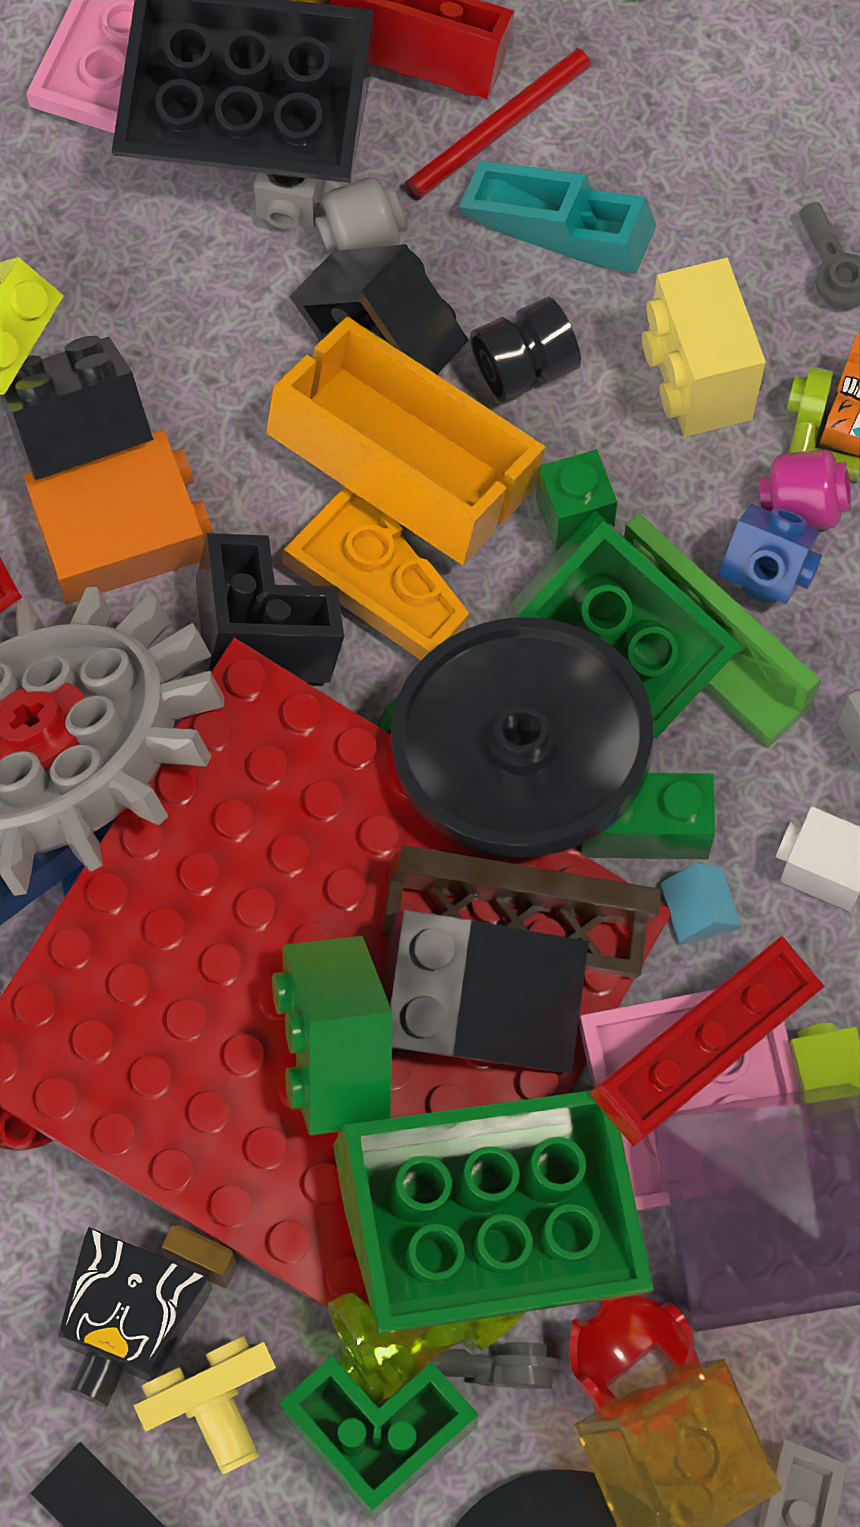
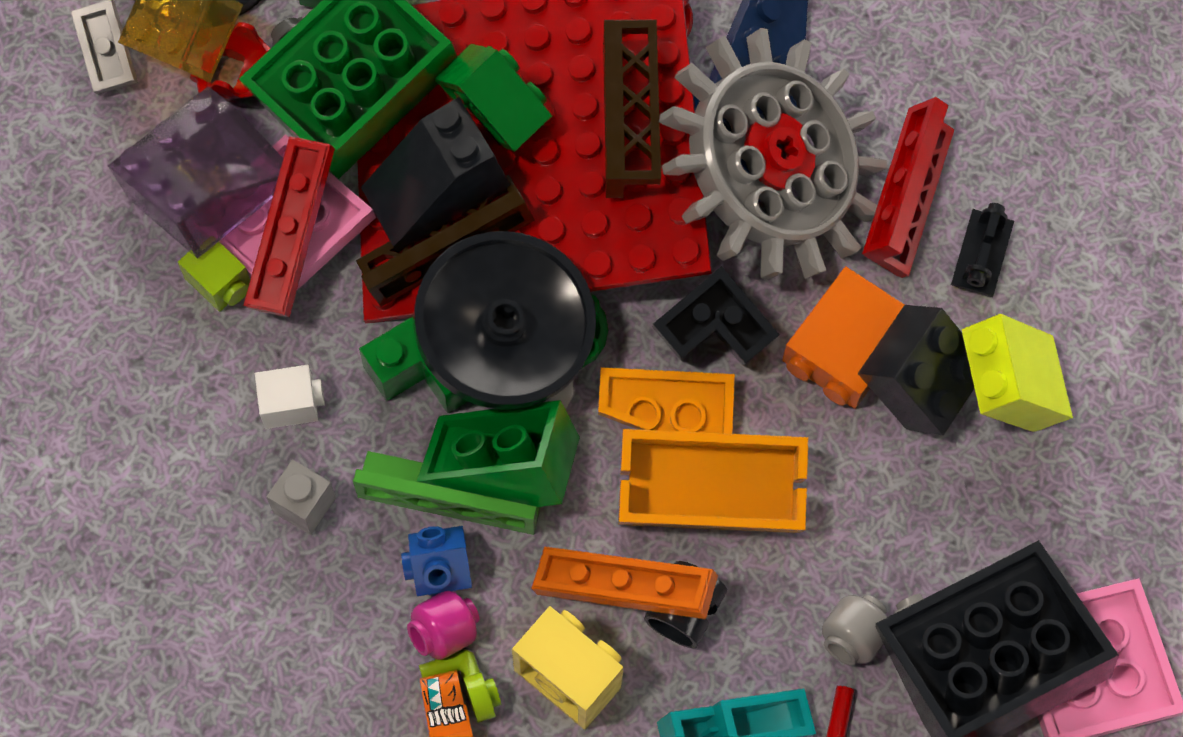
camera: 145 degrees right, 0 degrees up
(197, 901) = (615, 111): none -> dark brown fence
(388, 296) = (792, 560): black brick -> none
(571, 491) = (583, 520): green brick -> none
(580, 395) = (625, 582): none -> orange tile
(700, 903) = (347, 332): medium azure slope -> none

